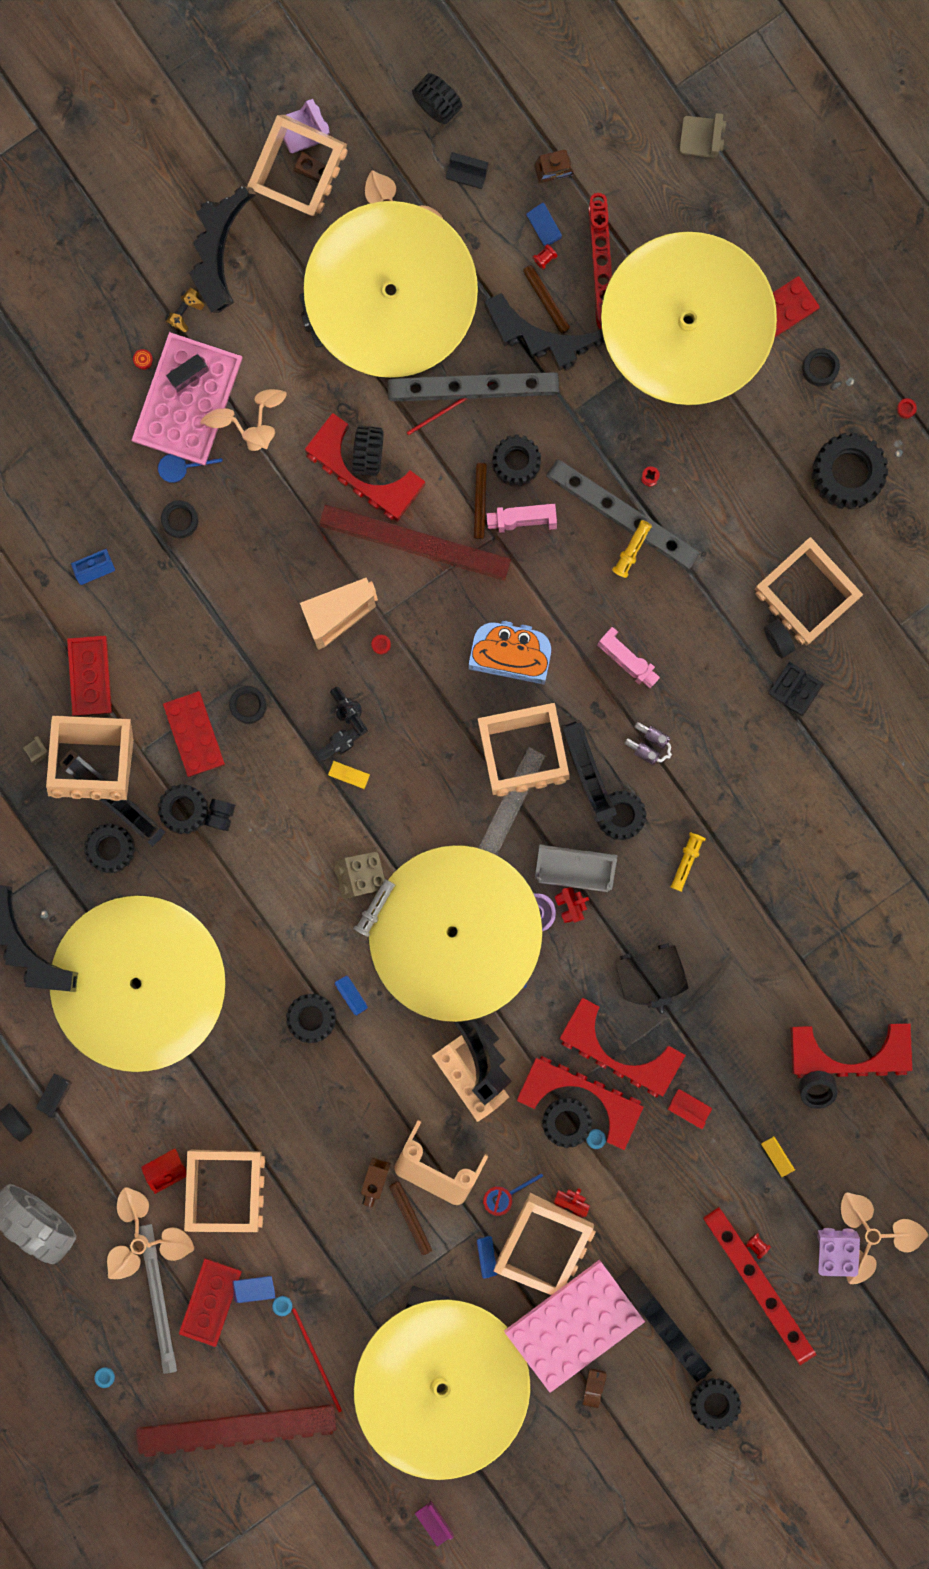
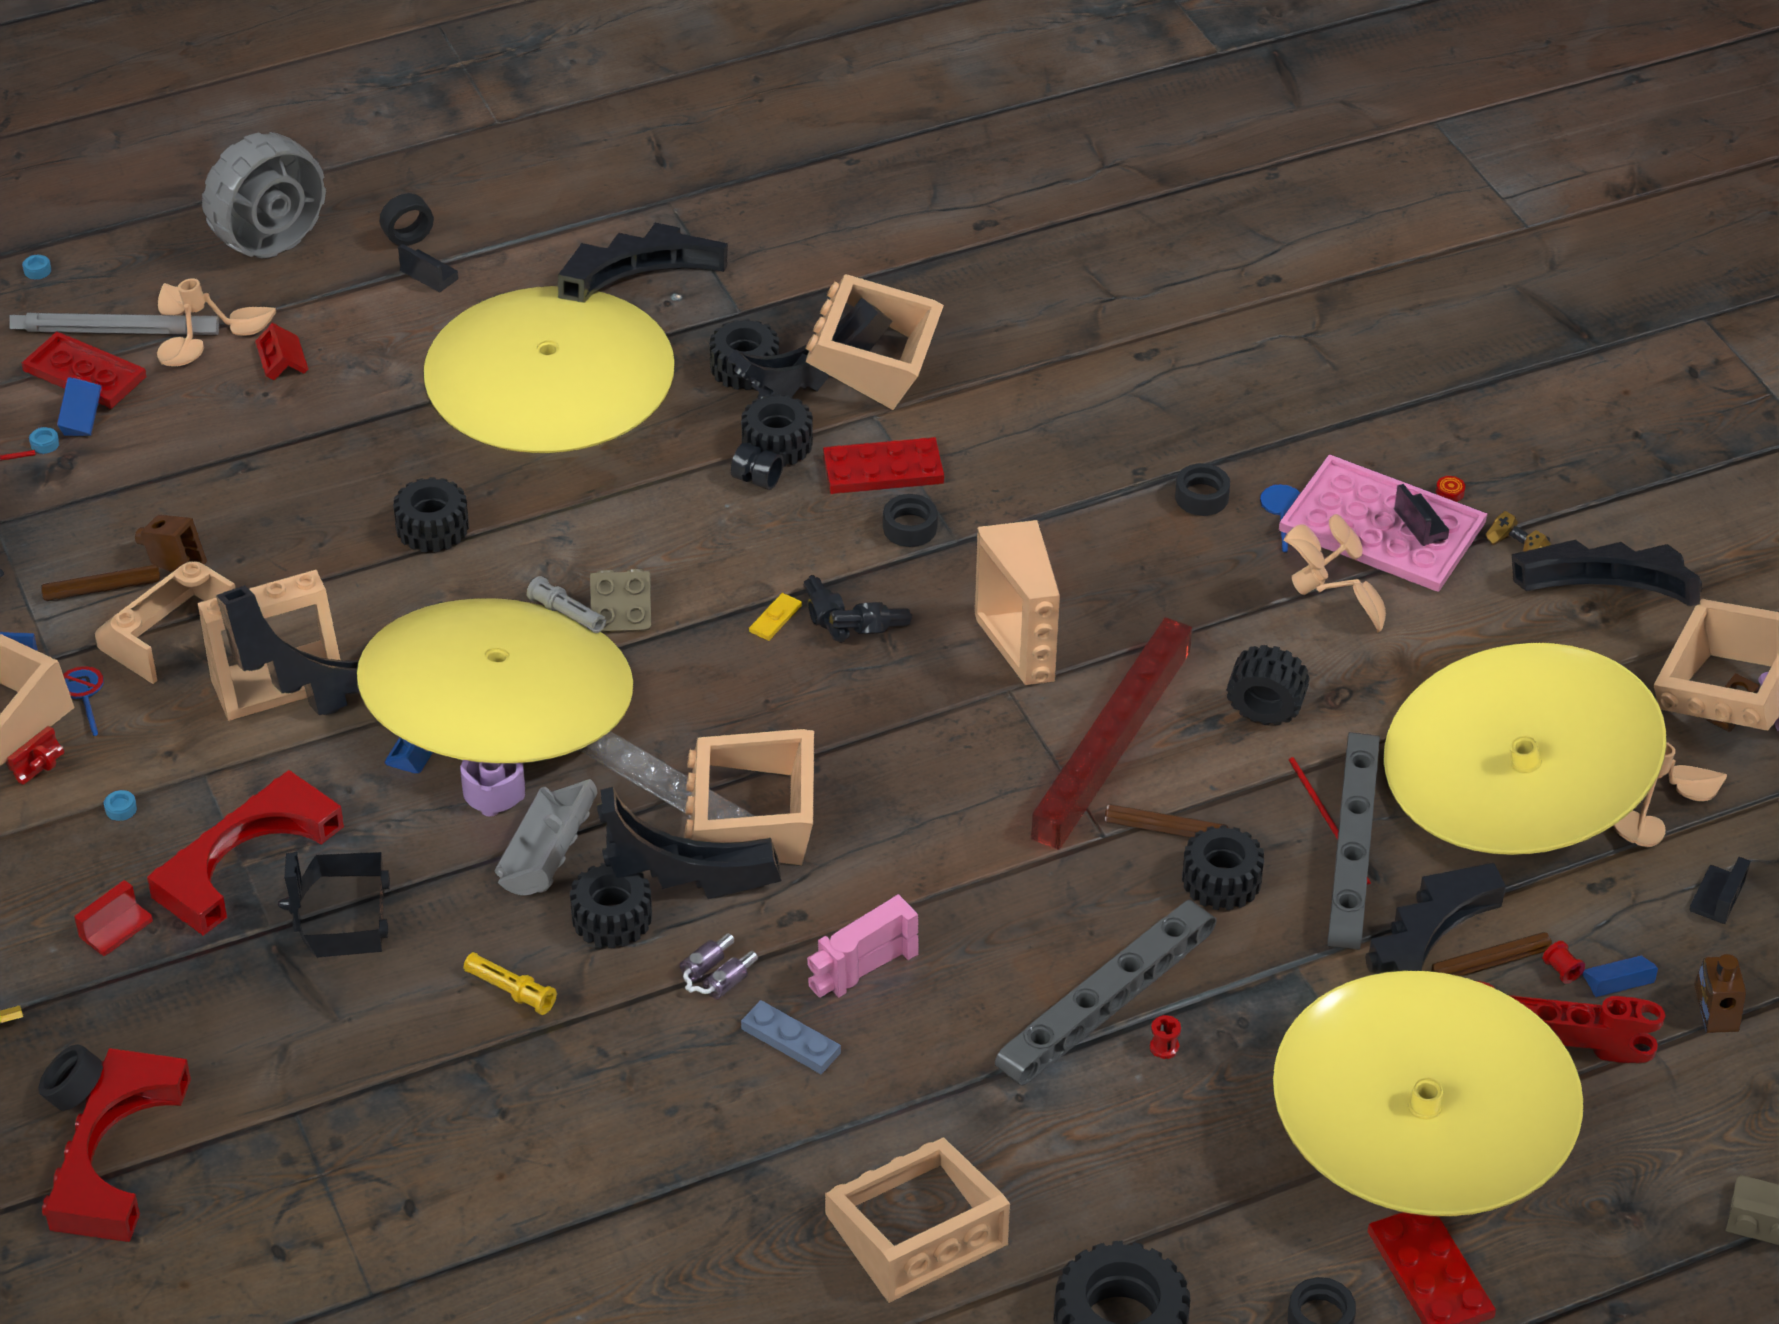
camera: 100 degrees right, 40 degrees down
(89, 676) = (994, 373): red plate -> none
(93, 567) = (1151, 401): blue slope -> none
(256, 1200) = (235, 362): light nougat windscreen -> none
(351, 995) = (447, 564): blue slope -> none
(381, 644) = (964, 678): red tile -> none
(391, 498) = (1189, 717): red arch -> none
(511, 652) = (908, 807): brick -> none
(522, 516) = (1126, 847): bright pink hips -> none
(575, 903) = (489, 827): red hips -> none
(579, 1110) = (159, 764): black tyre -> none
(621, 1112) = (150, 833): red arch -> none
(628, 556) = (1034, 980): yellow pin -> none
(690, 690) = (791, 1037): none -> sand blue plate
(779, 638) = (839, 1142): black tyre -> none
(796, 689) = (754, 1180): black slope -> none

